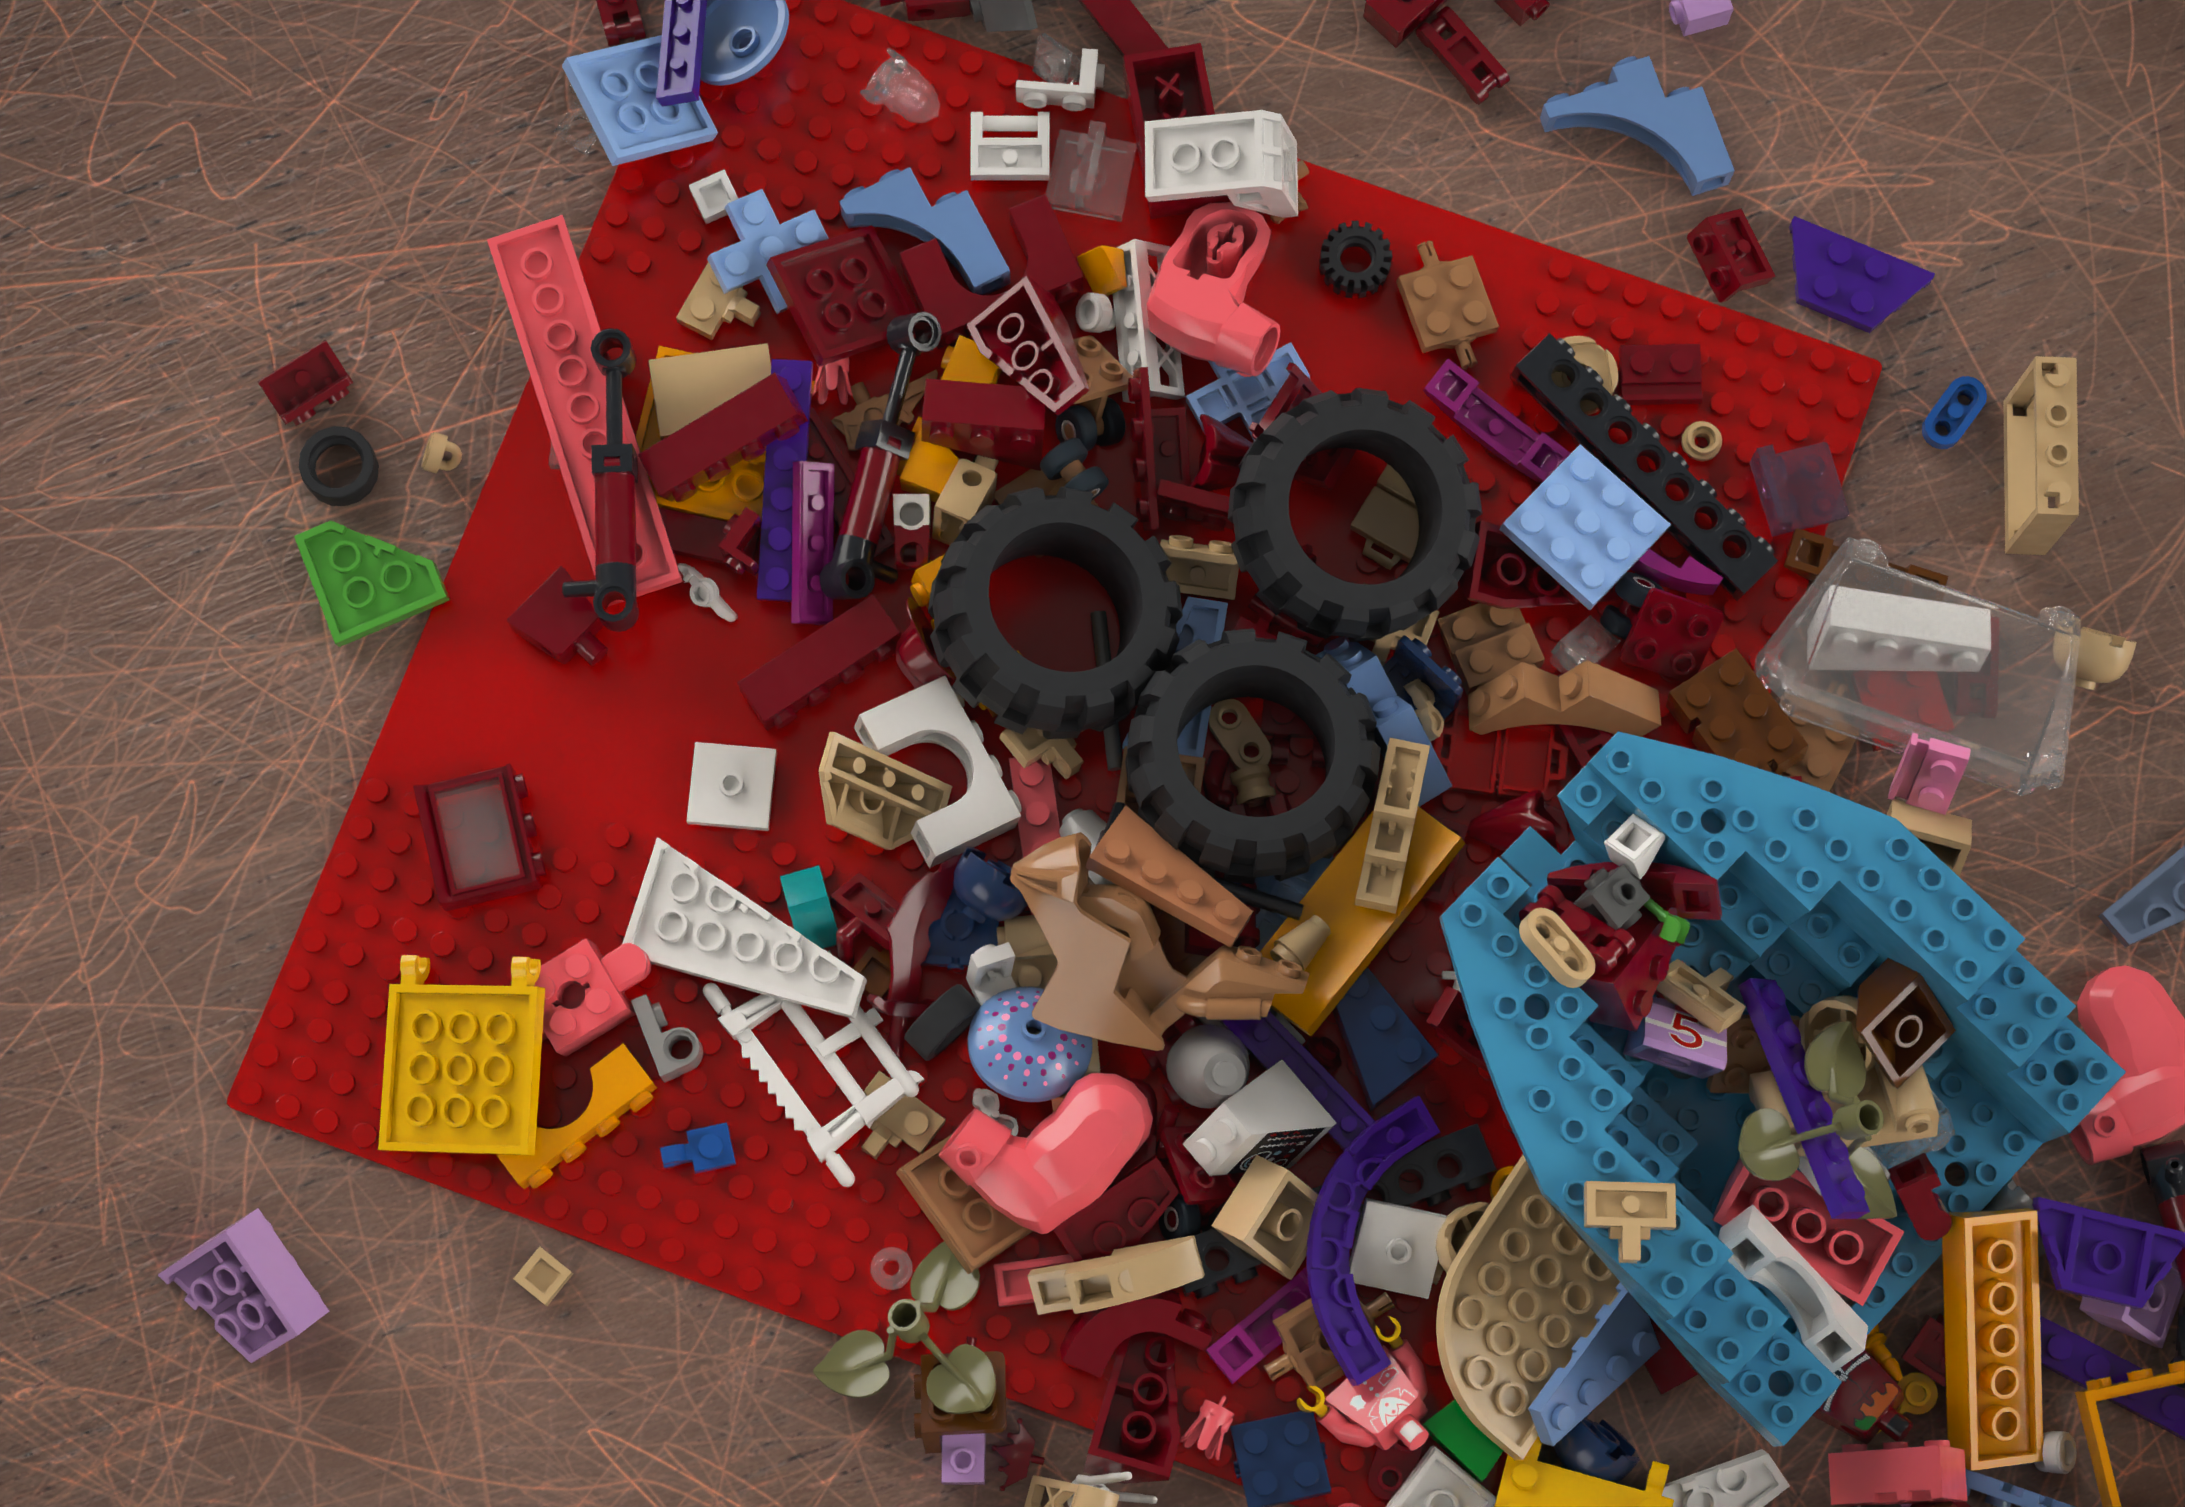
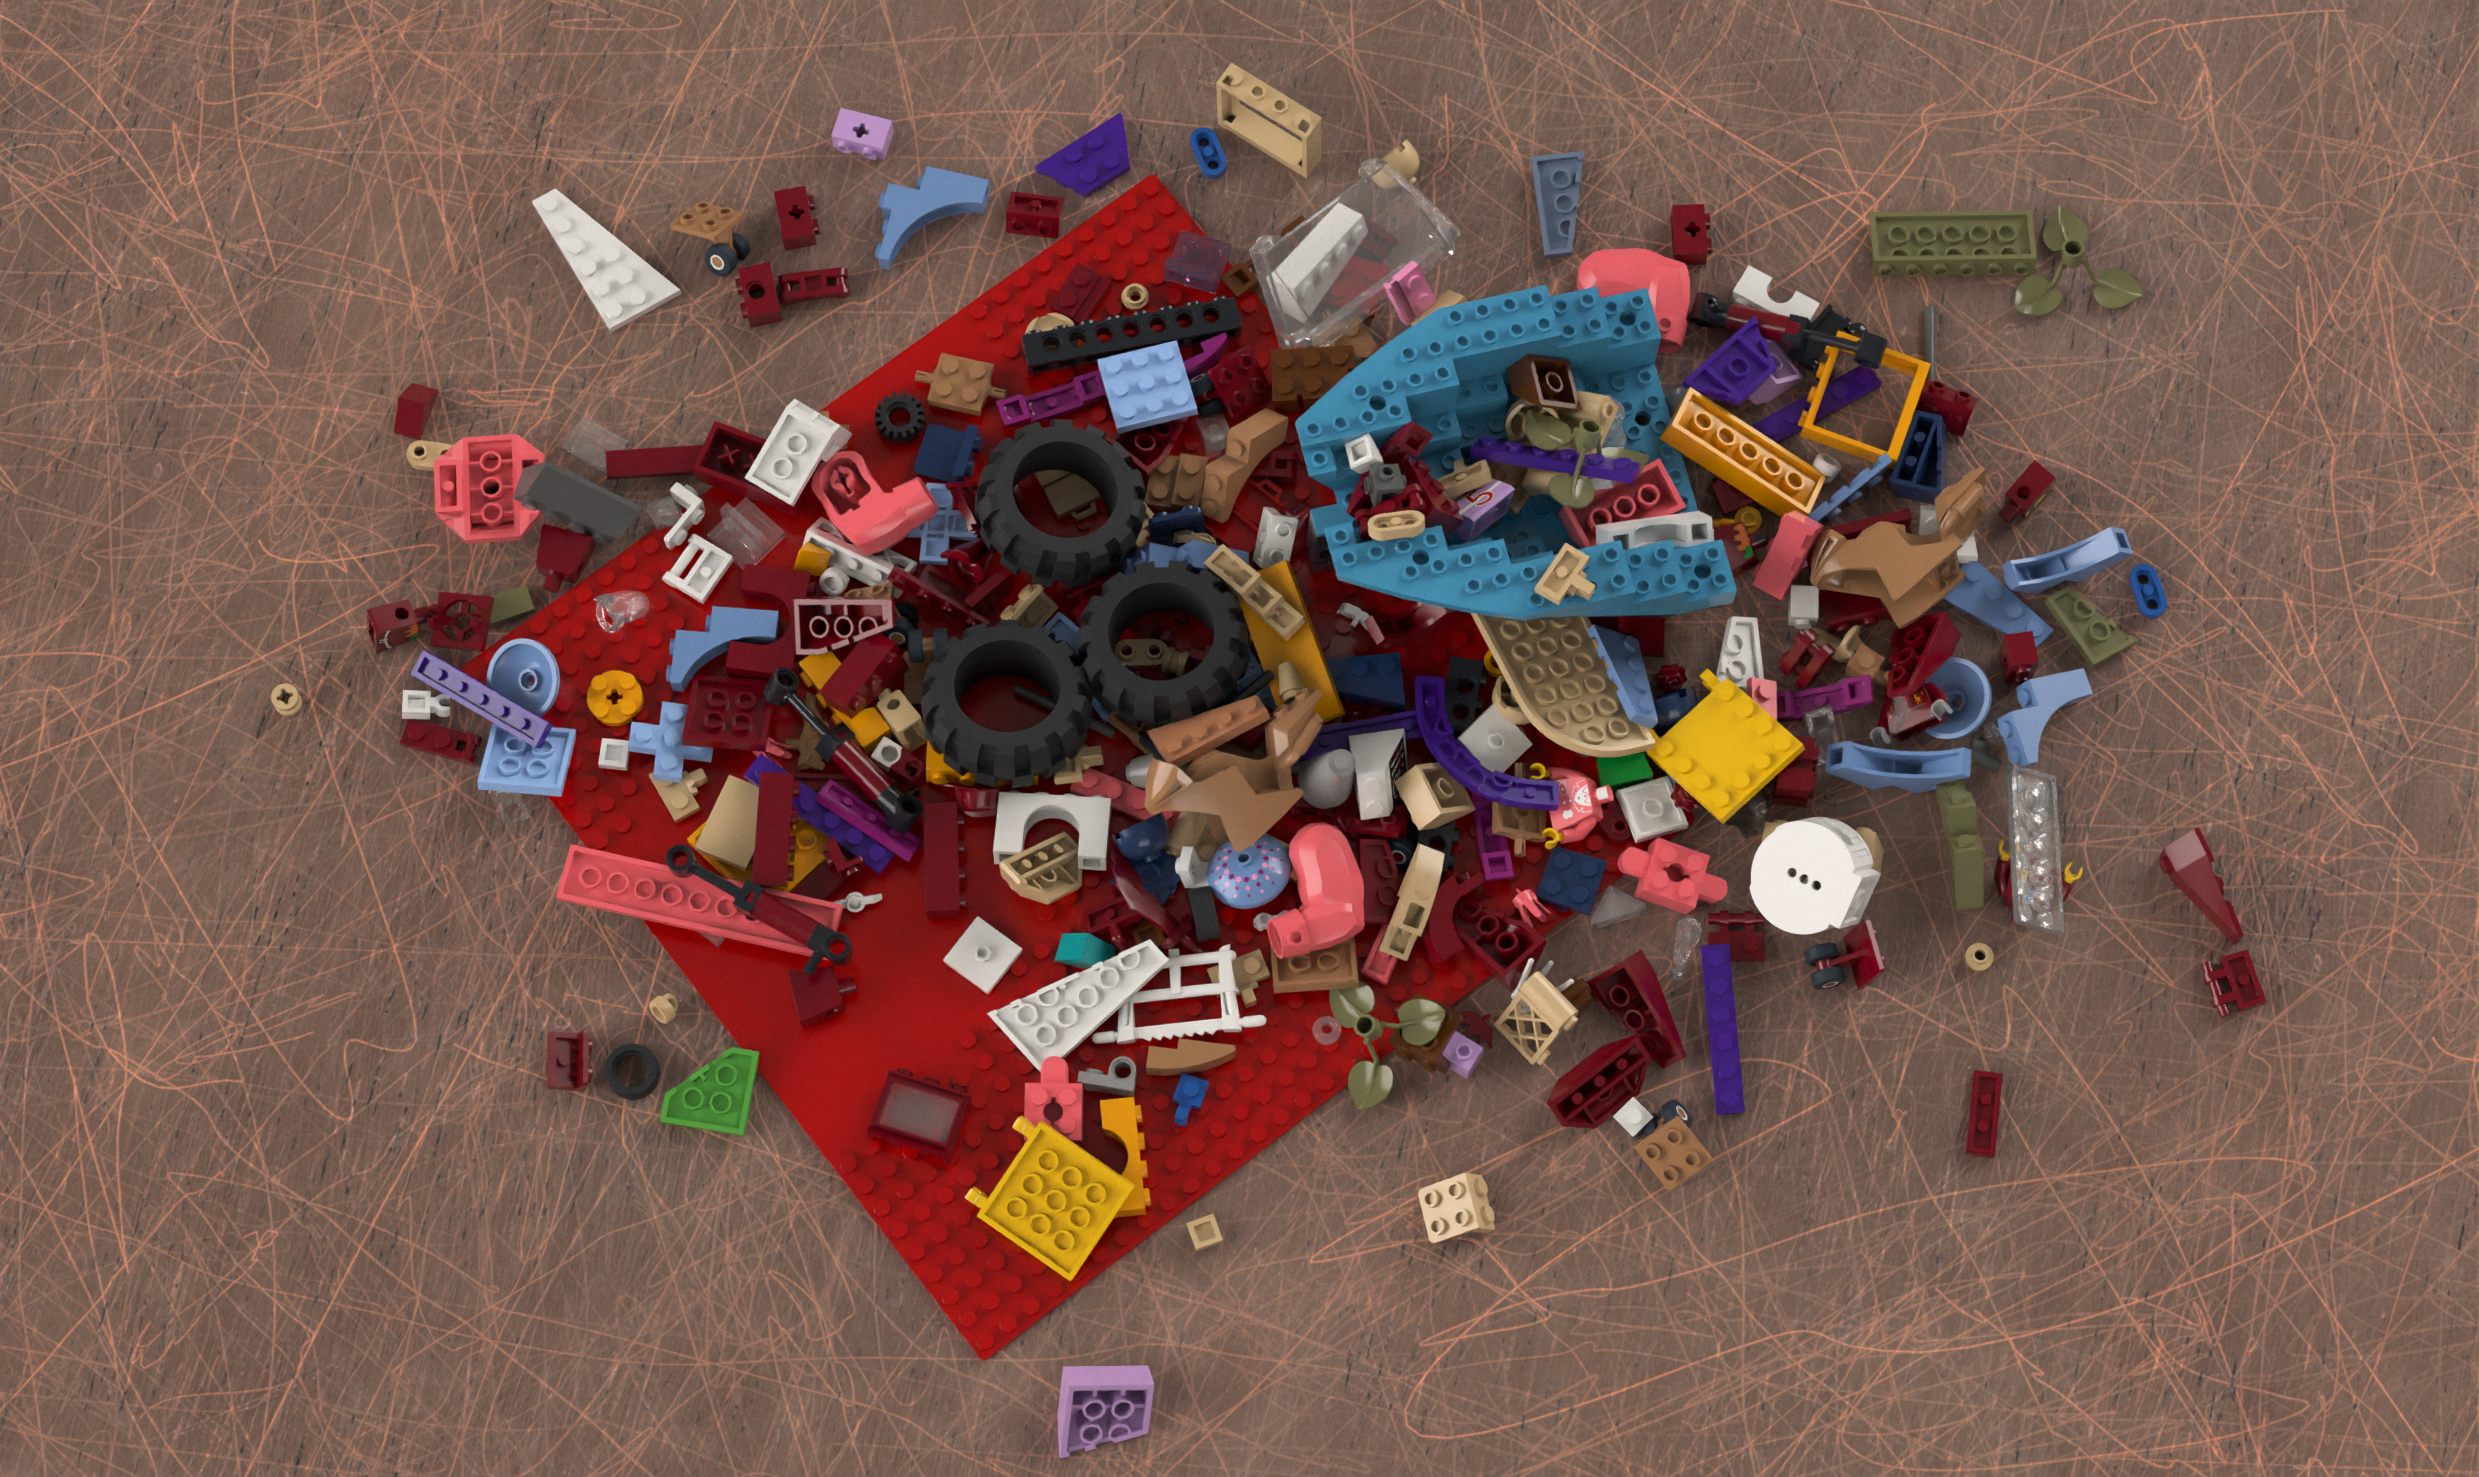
camera: 55 degrees left, 5 degrees down
(748, 1116) = (1188, 1058): none -> medium nougat slope
(788, 131) = (603, 686): none -> light orange plate
(1346, 345) = (948, 453): none -> dark blue bracket
(1487, 808) = (1274, 538): none -> white bracket
(1636, 1422) = (1671, 677): none -> dark red plant
(1674, 927) = (1422, 463): bright green hand -> none
(1926, 1210) = (1637, 439): dark red leg -> none

